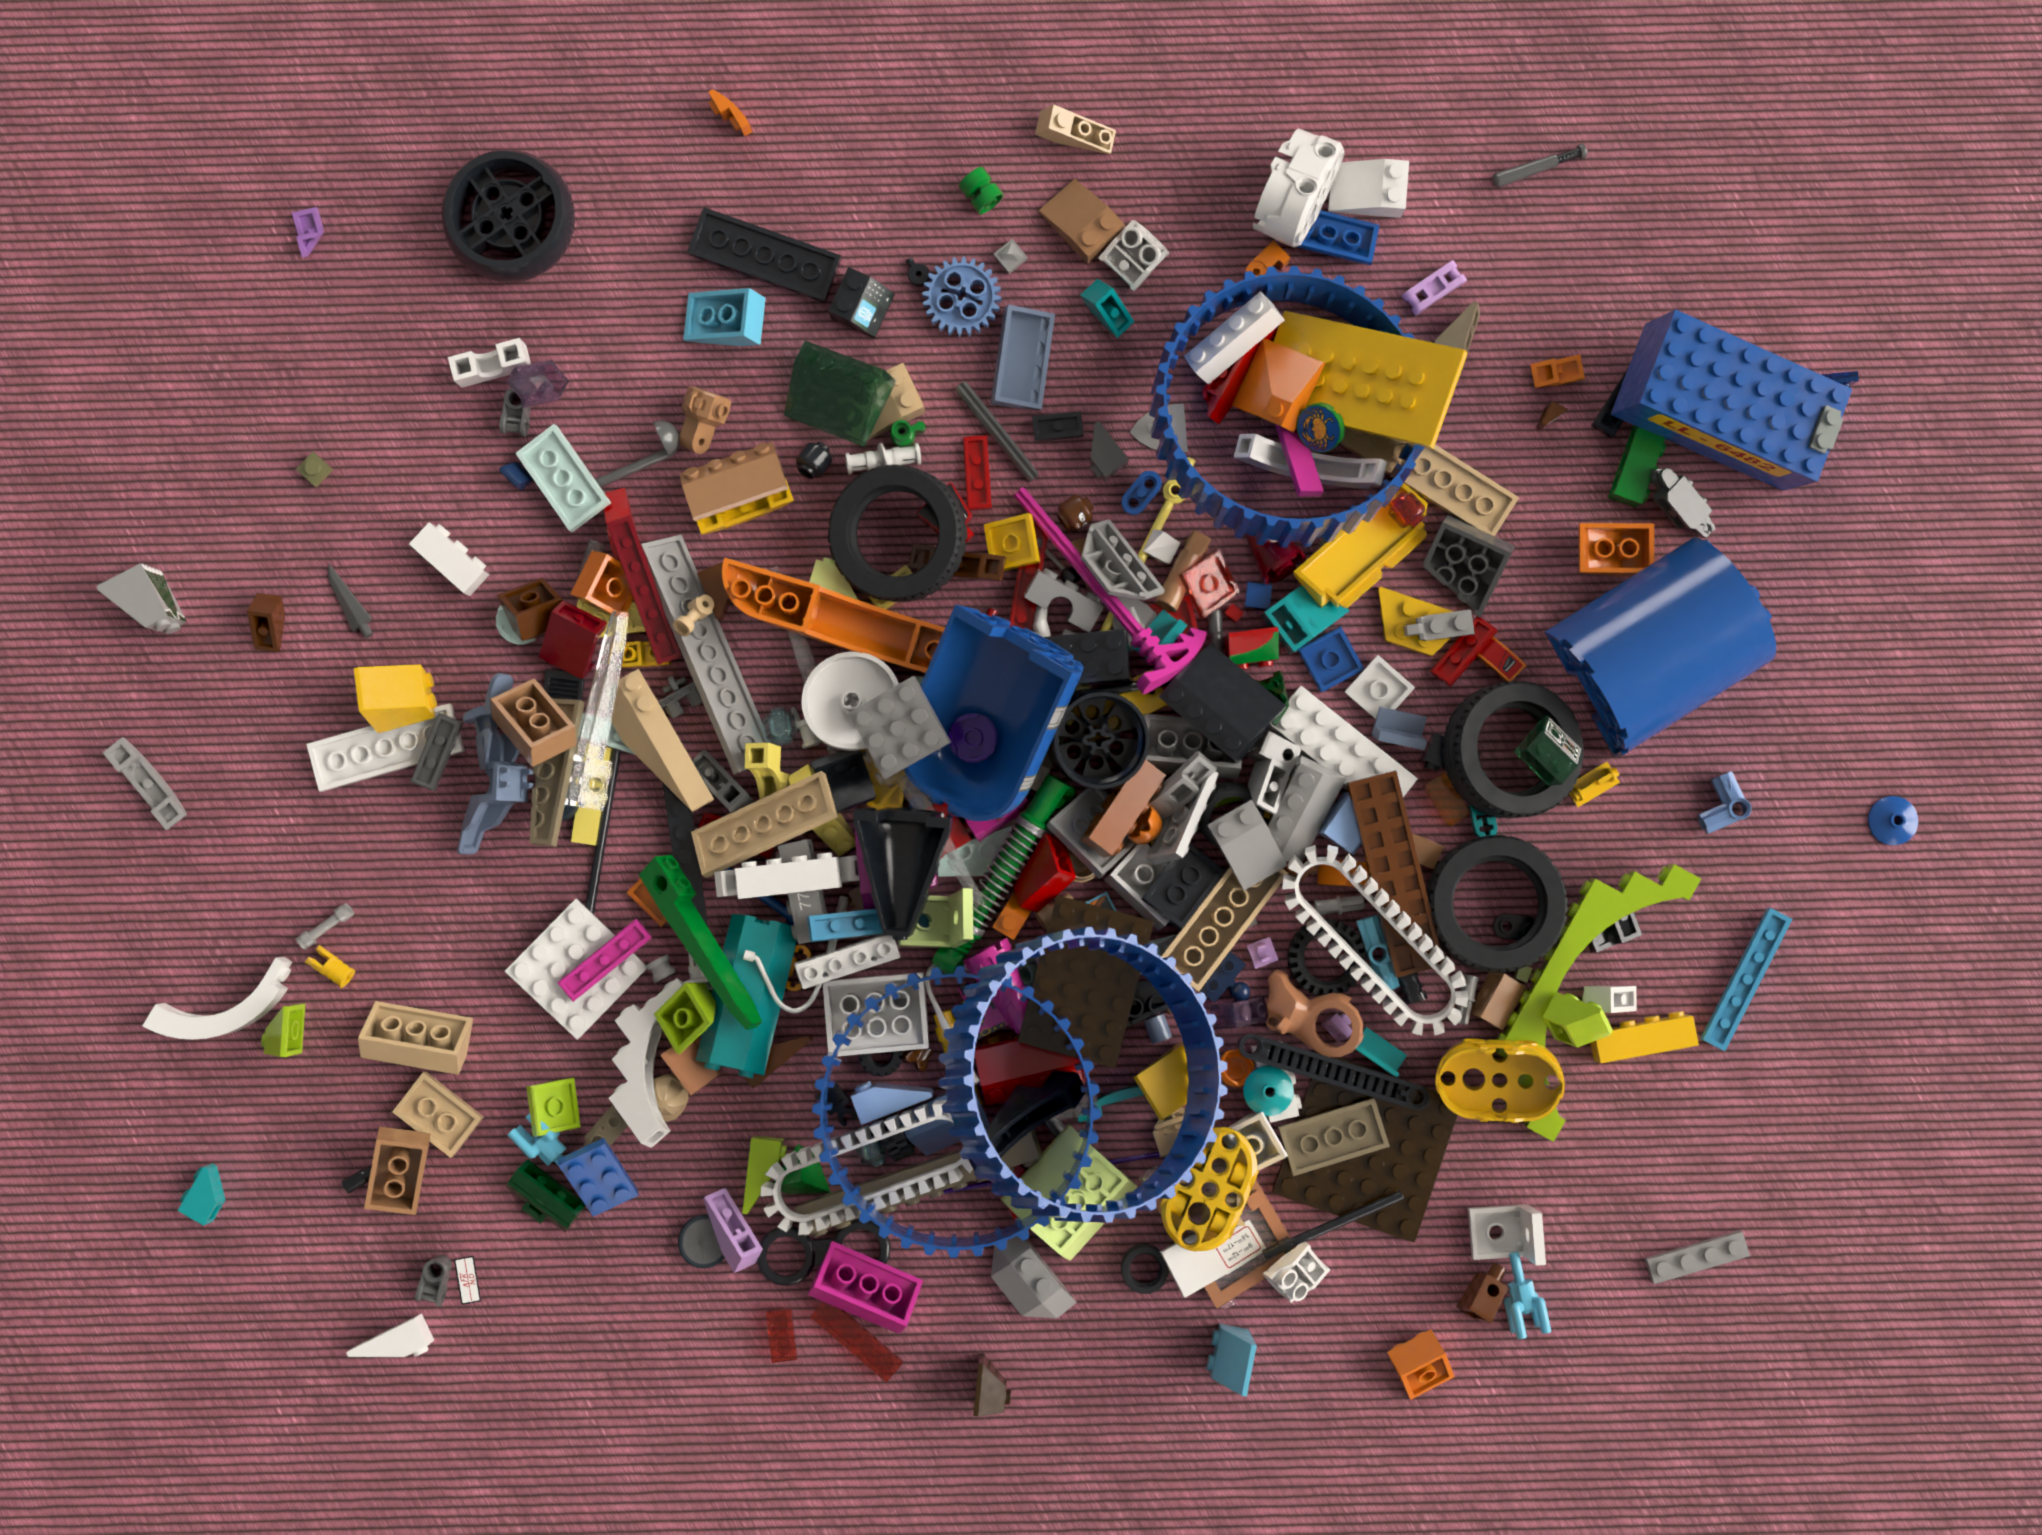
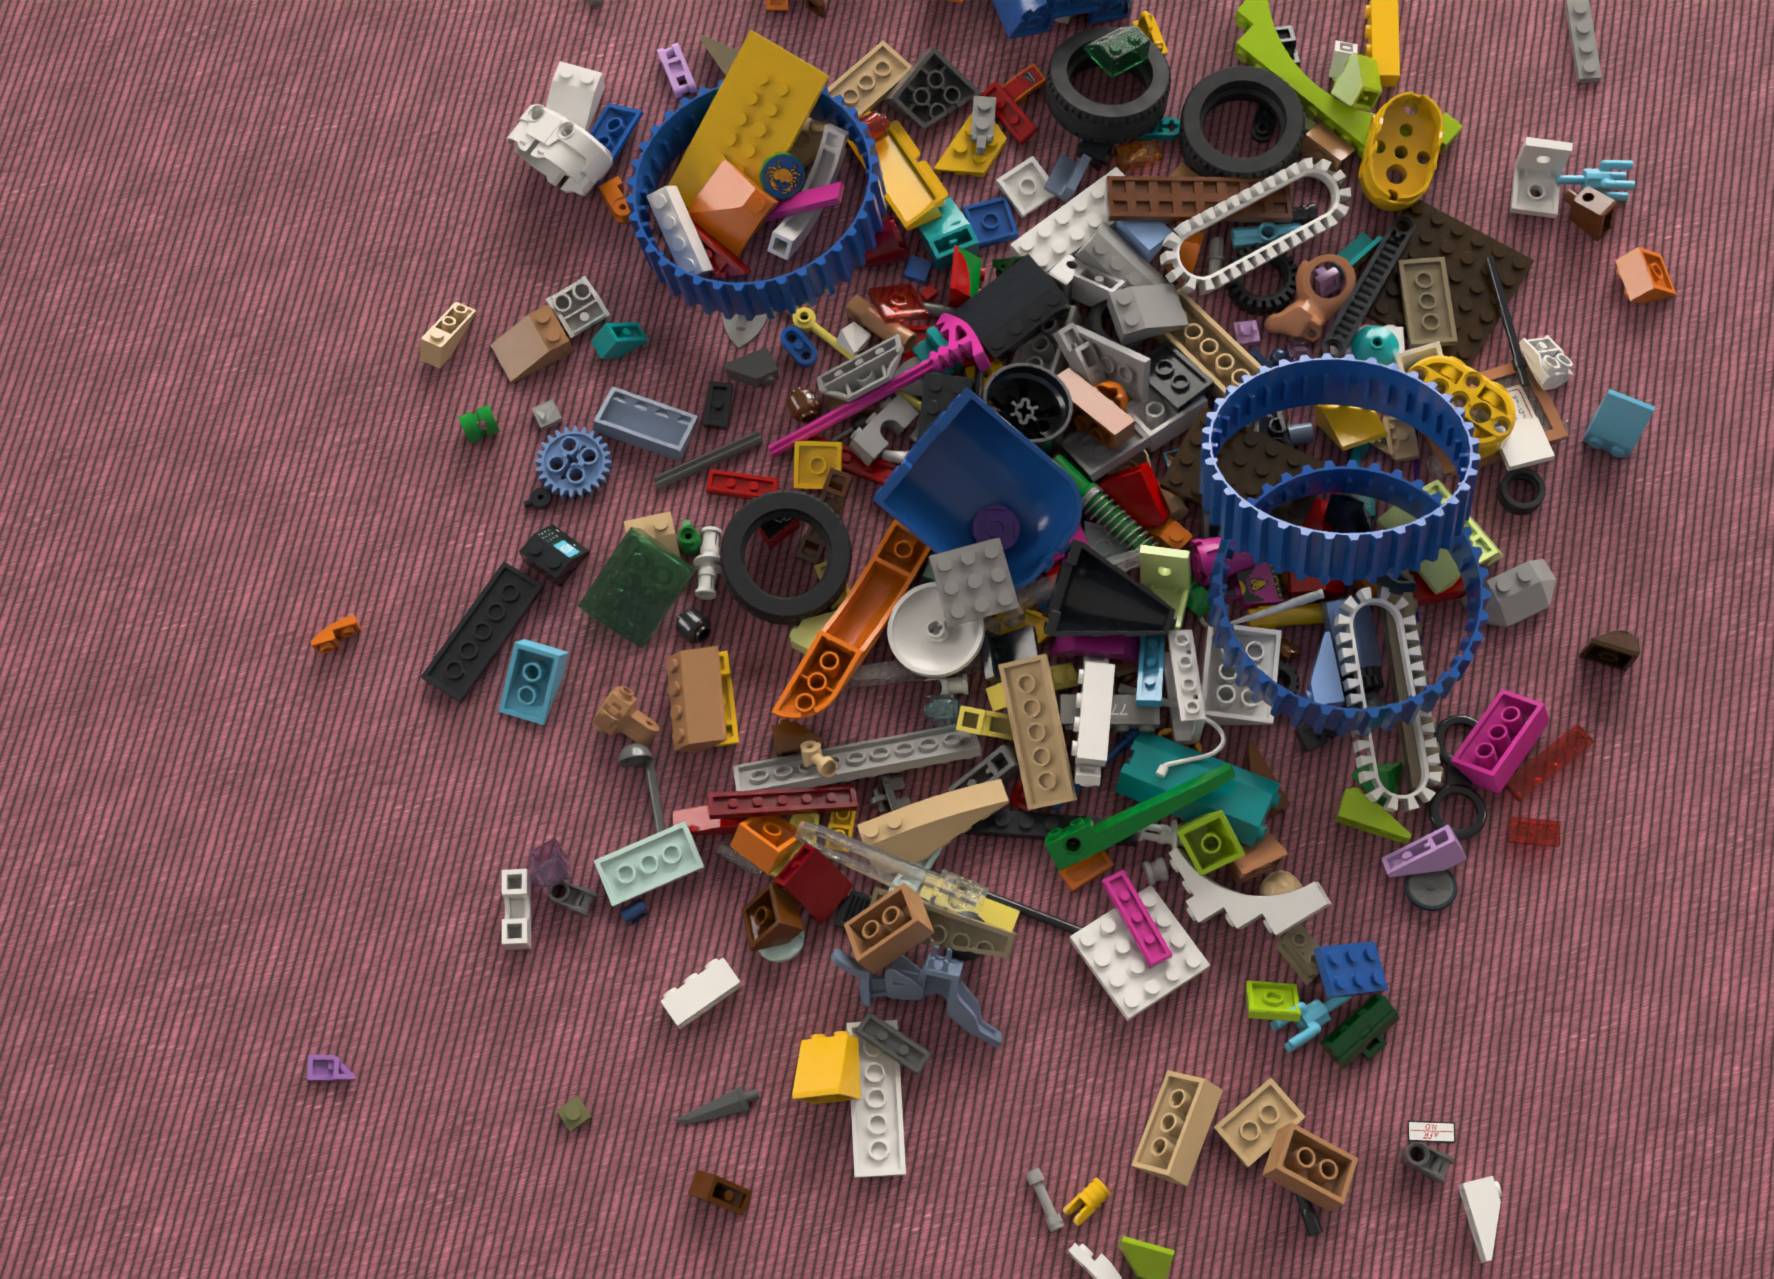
camera: 75 degrees left, 15 degrees down
(471, 241) = (333, 877): black wheel -> none

